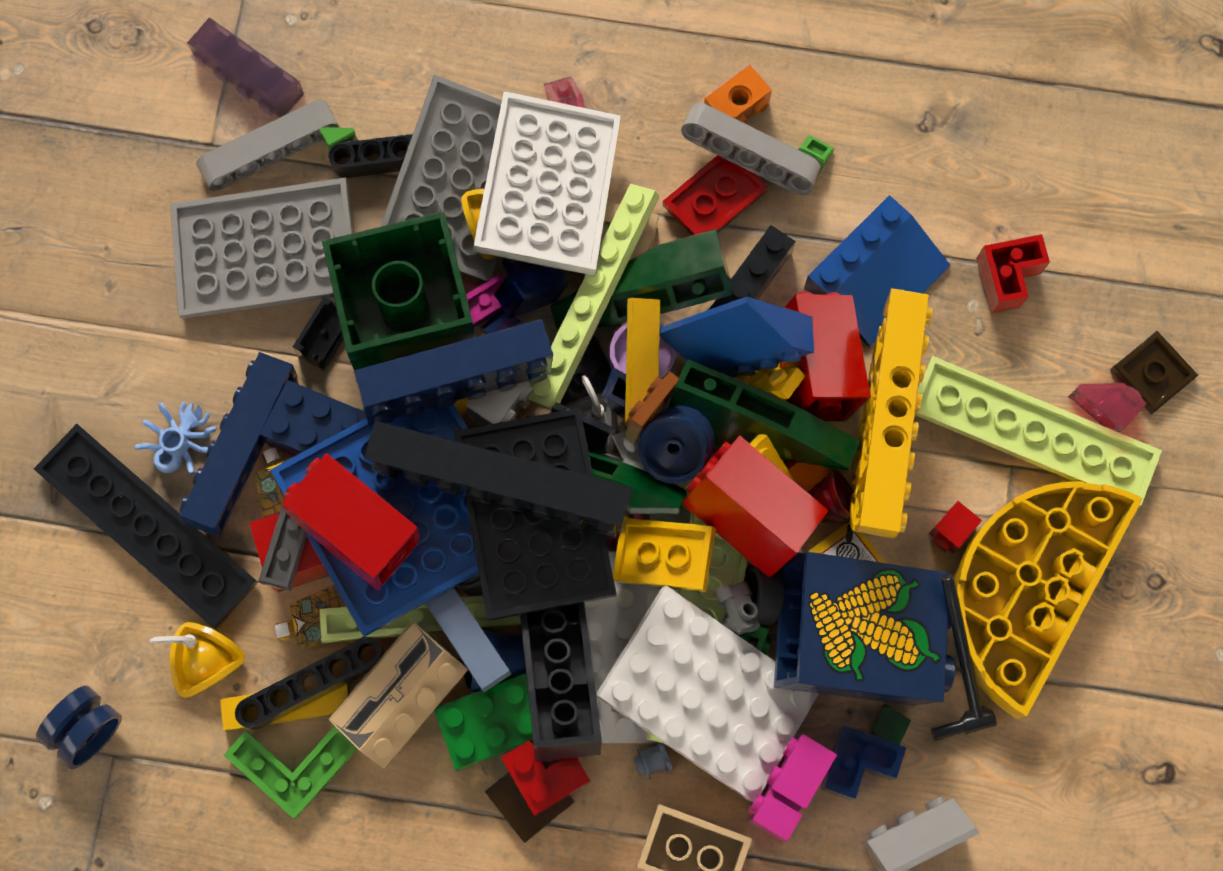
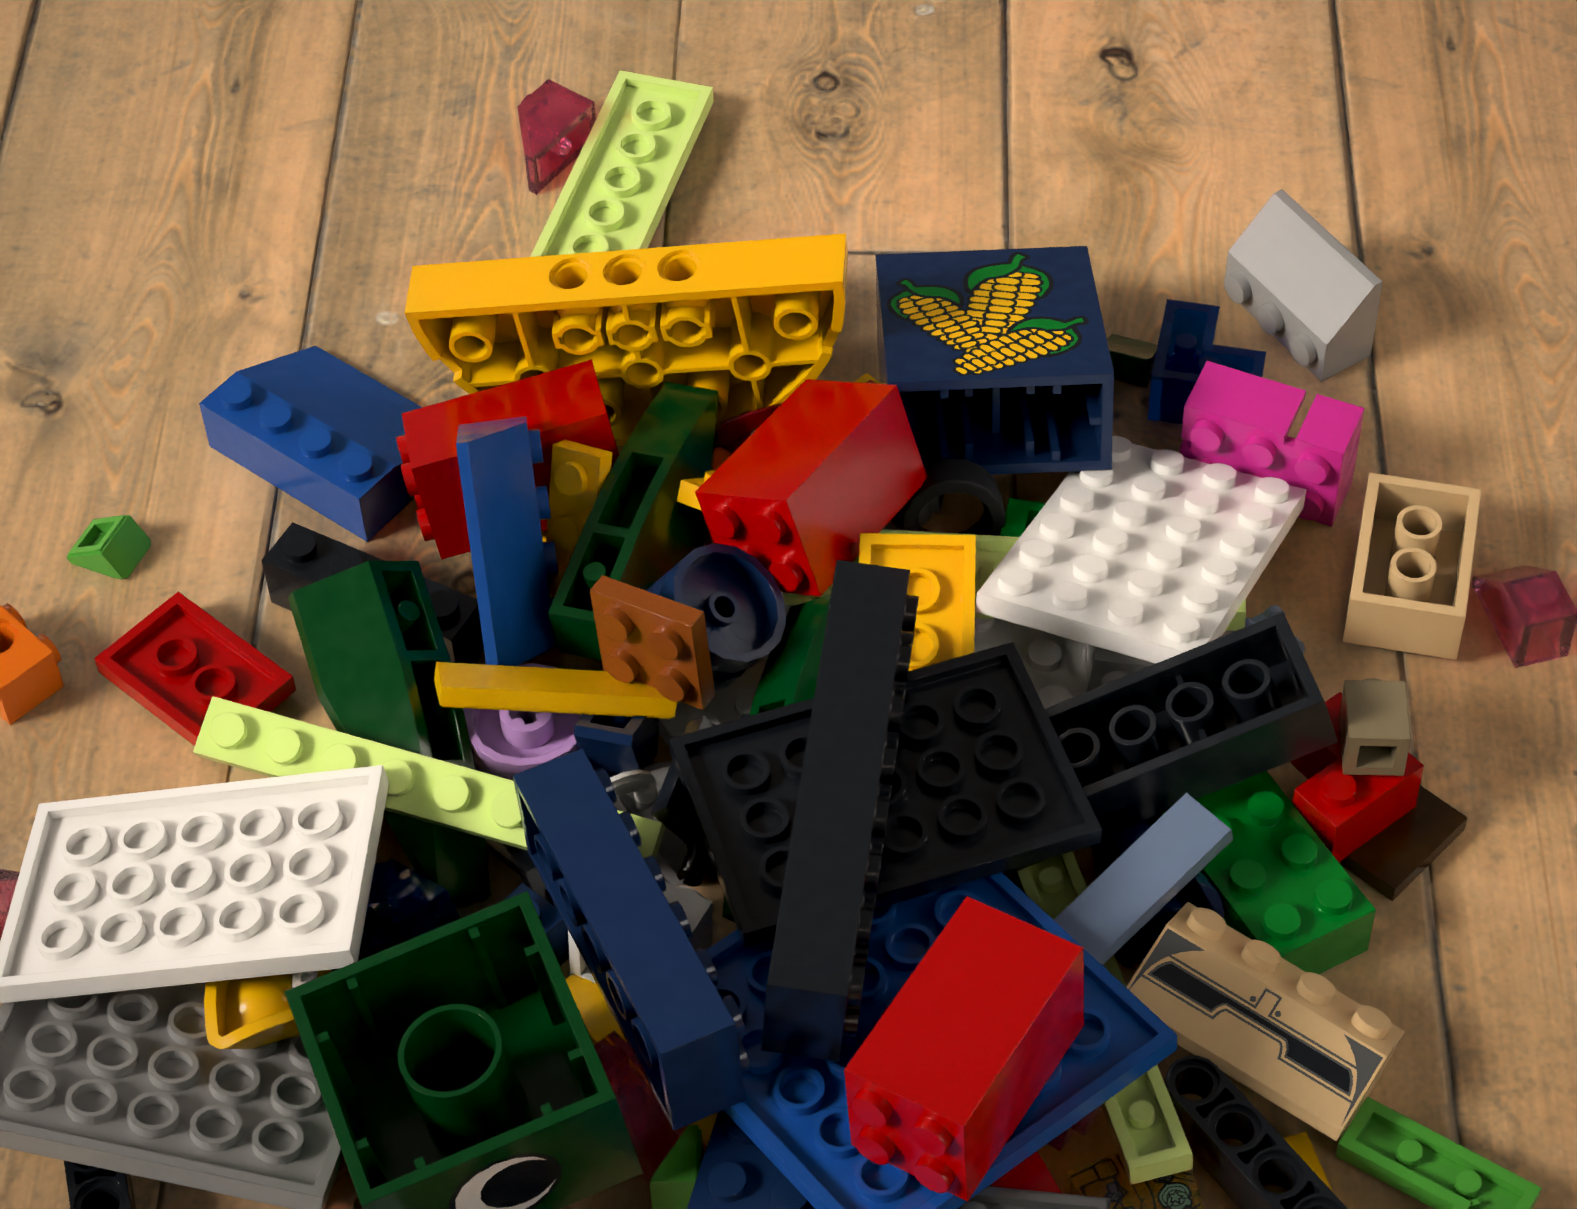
camera: 95 degrees left, 25 degrees down
(547, 786) = (1374, 727): none -> dark tan brick
(740, 609) = (996, 512): dark grey plate -> none
(750, 149) = (103, 615): light grey beam -> none
(978, 716) = (1102, 261): black bar -> none
(1006, 266) = (333, 260): red brick -> none
(1032, 578) = (814, 165): yellow brick -> none
(1154, 371) = (481, 96): dark brown tile -> none

